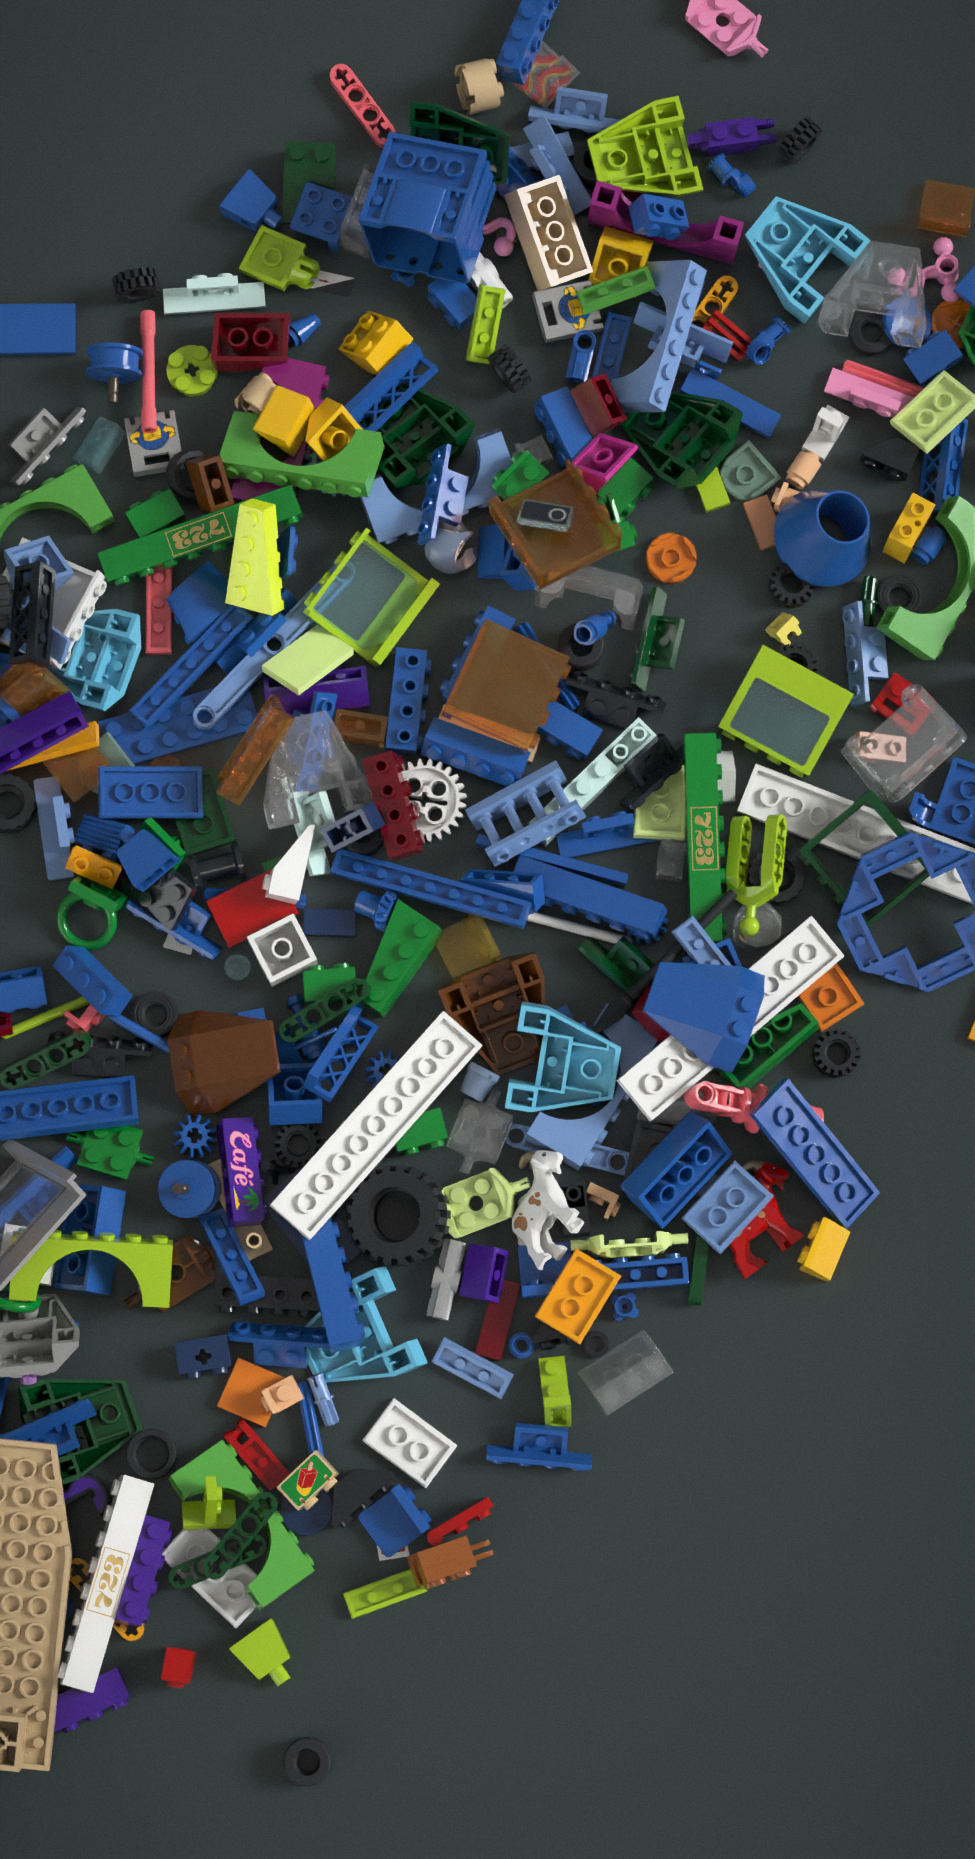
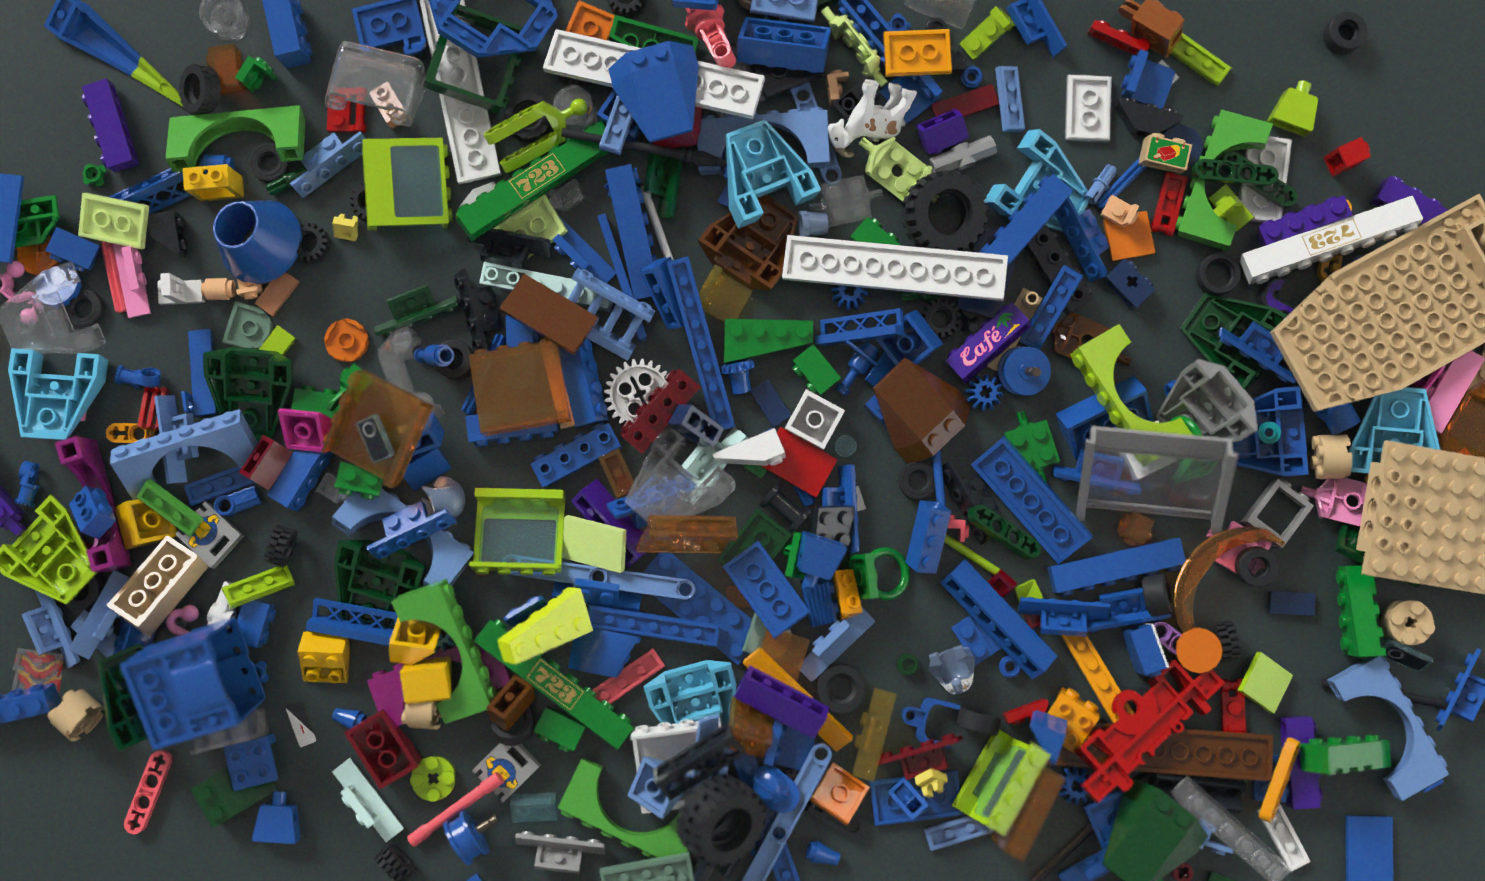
camera: 120 degrees left, 5 degrees up
(279, 261) = (308, 770): lime plate -> none
(323, 1008) = (837, 362): dark green beam -> none
(558, 759) = (549, 314): none -> reddish brown tile

